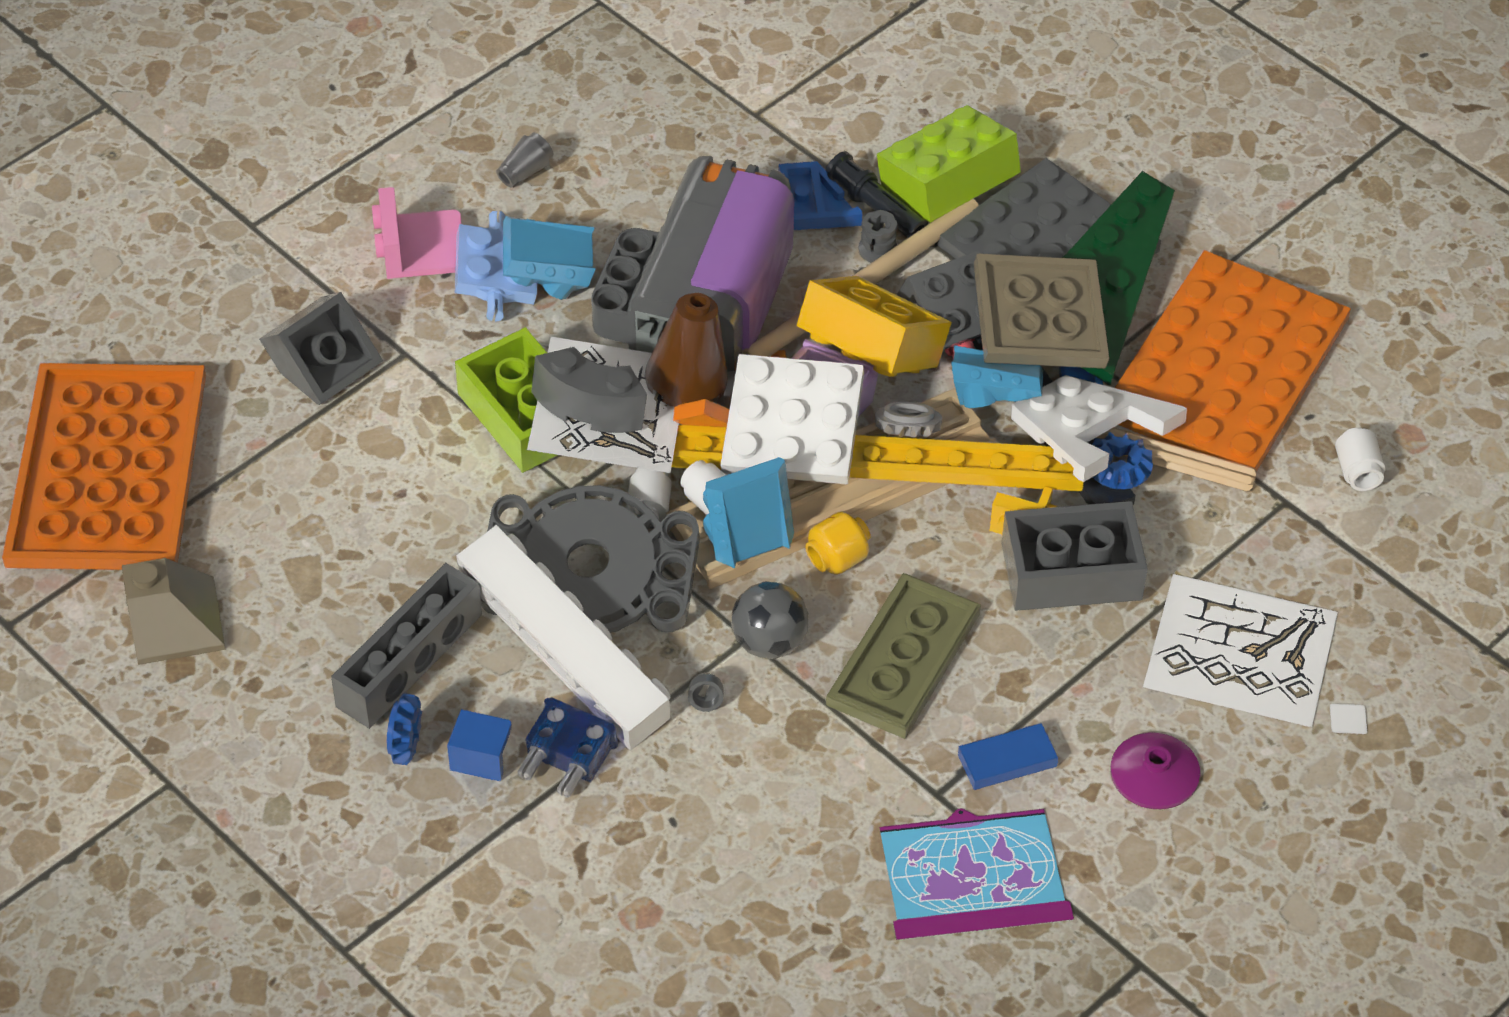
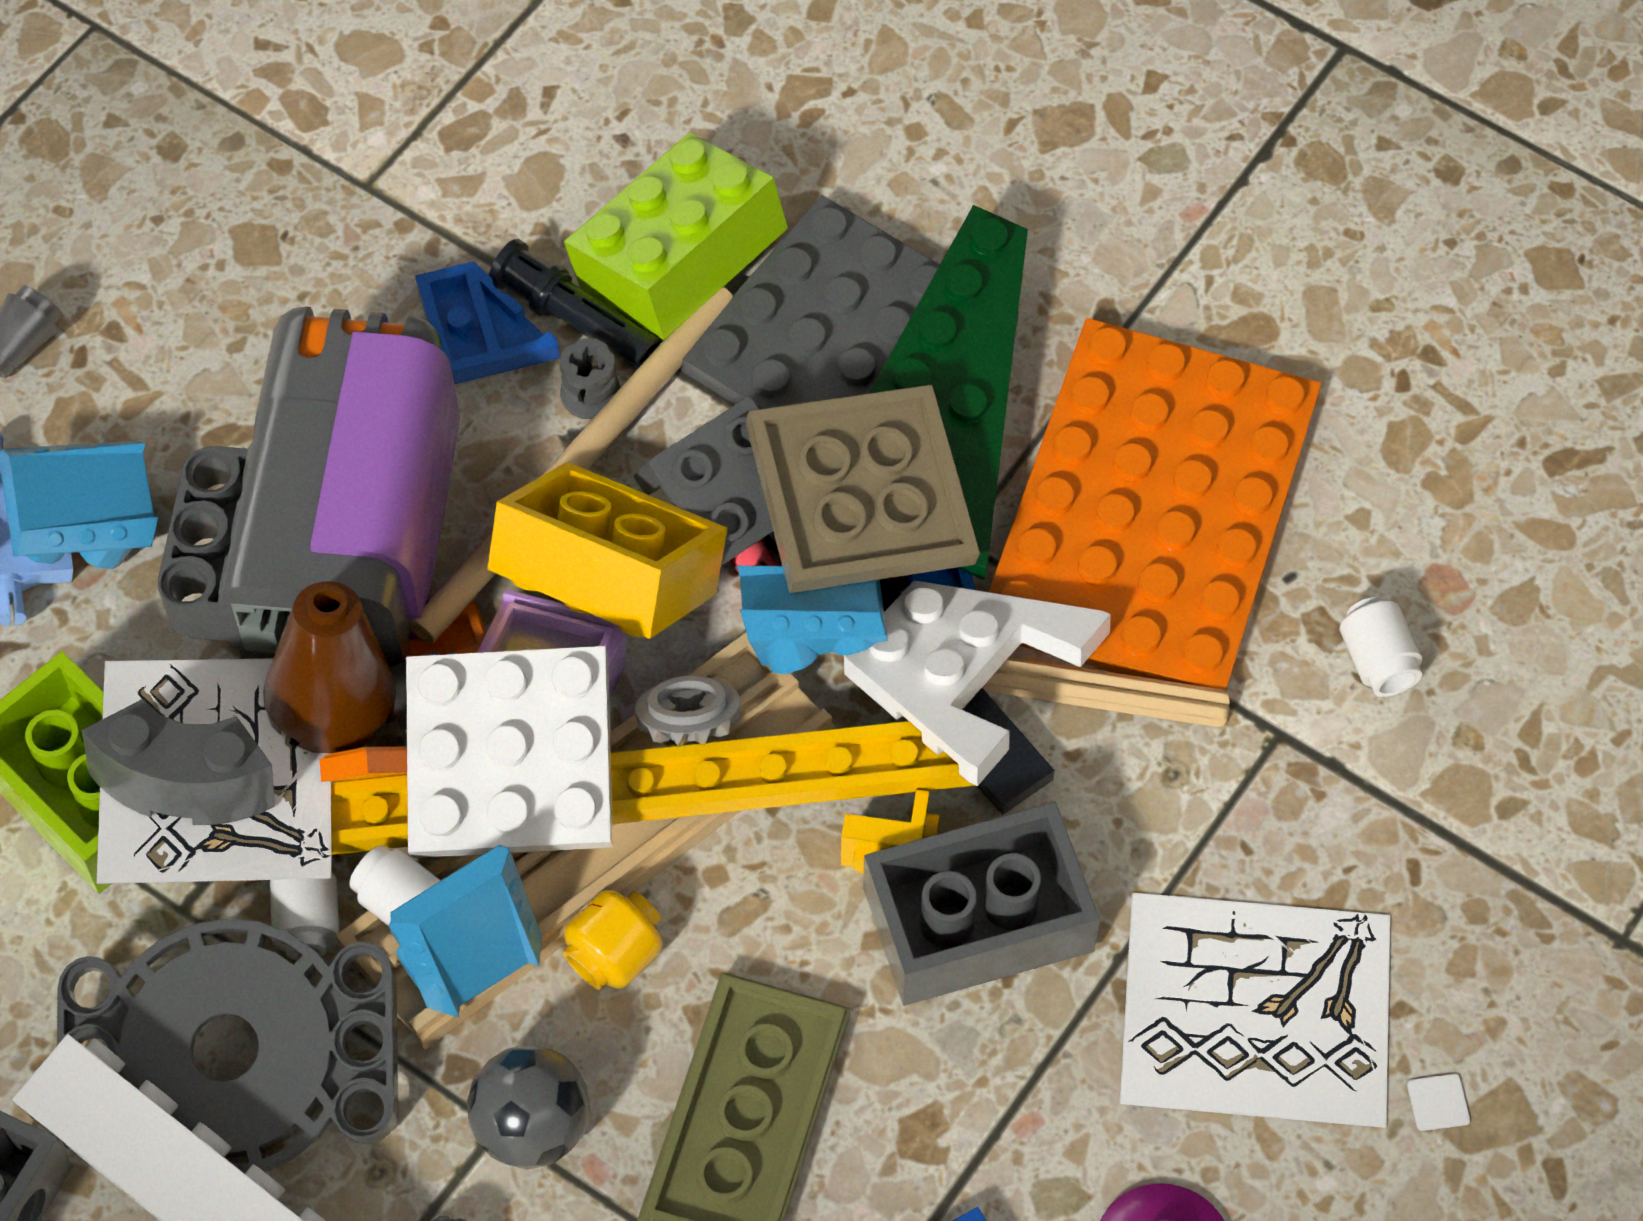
camera: 10 degrees left, 10 degrees up
(1122, 474) = (1052, 714): blue gear -> none

